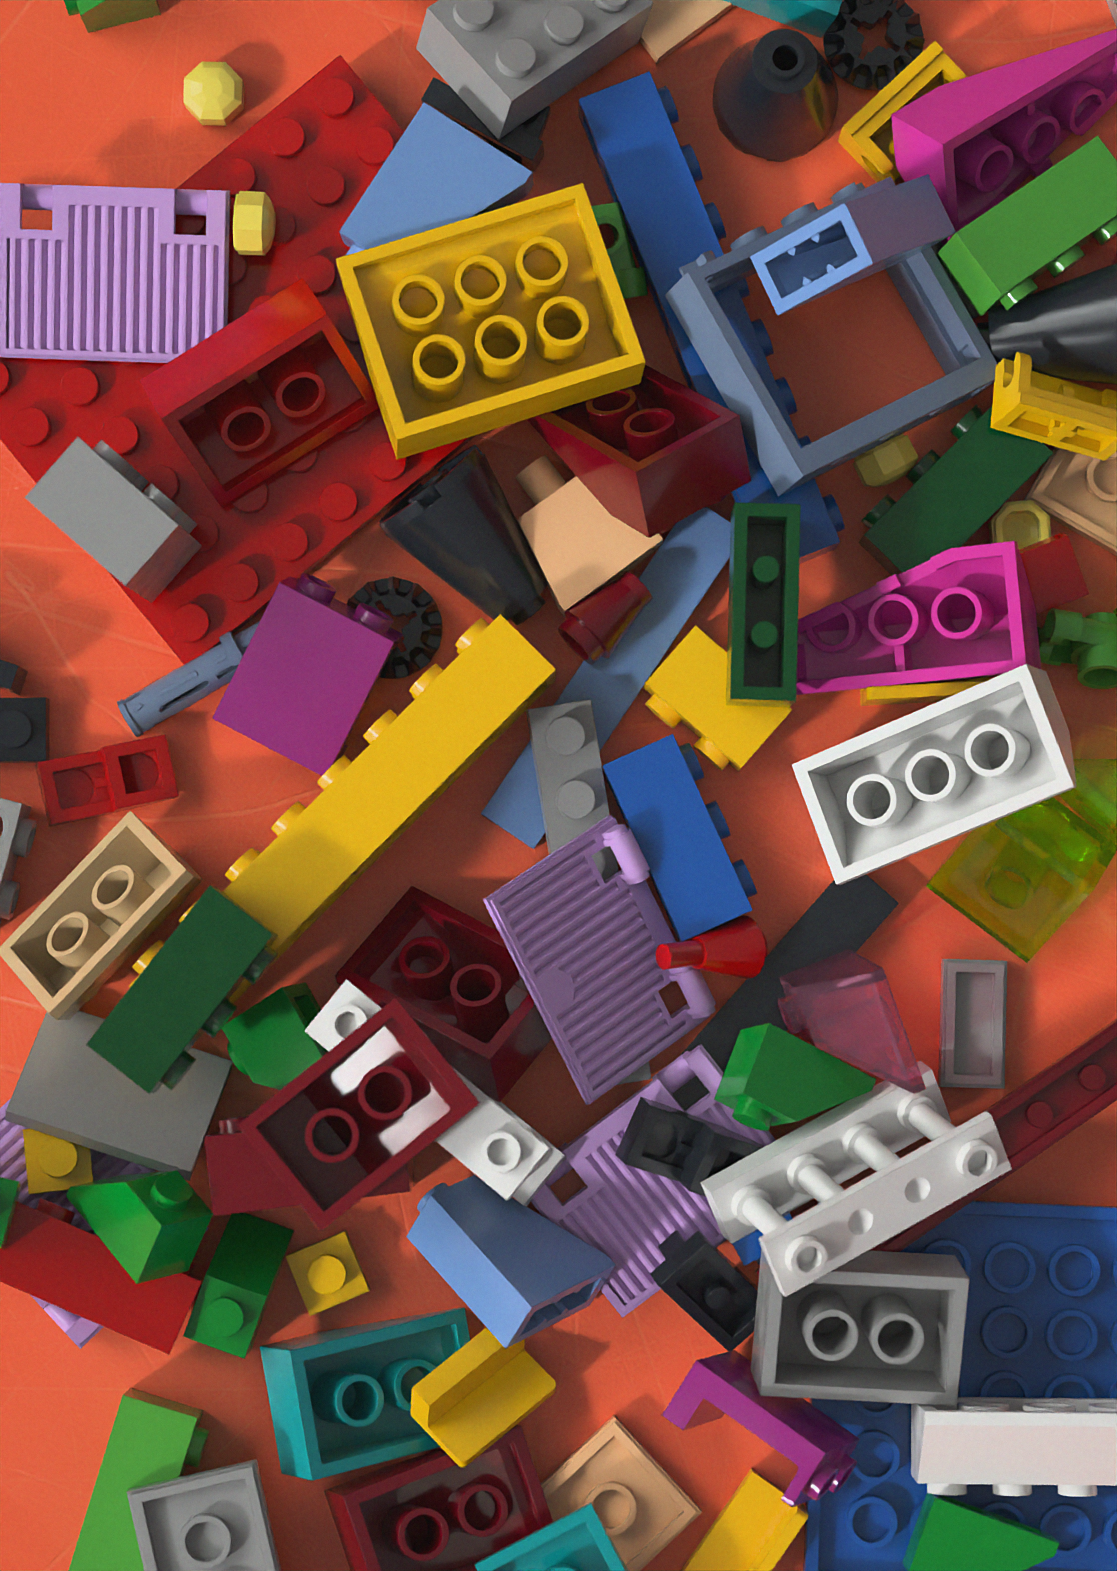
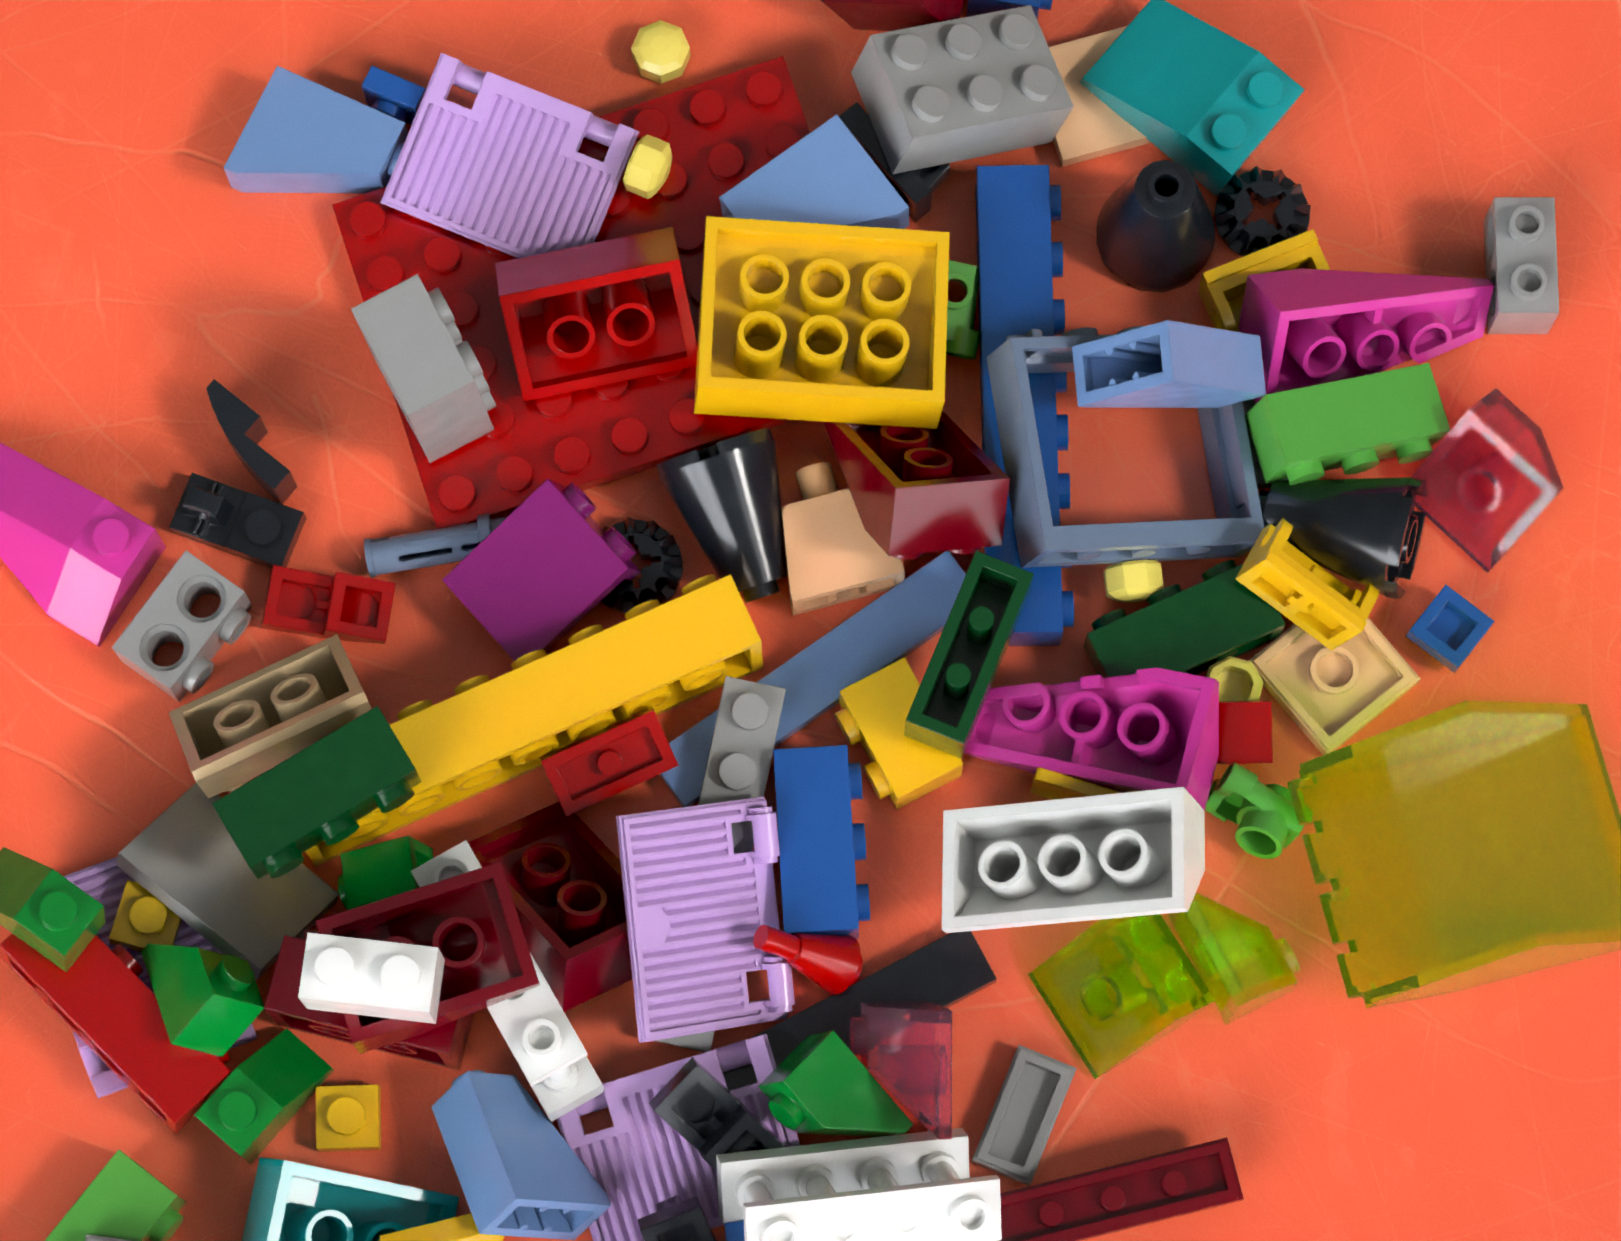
camera: 25 degrees right, 10 degrees down
(318, 1167) = (371, 978): none -> white brick
(445, 835) = (609, 761): none -> red plate
(603, 619) = (825, 622): dark red cone -> none

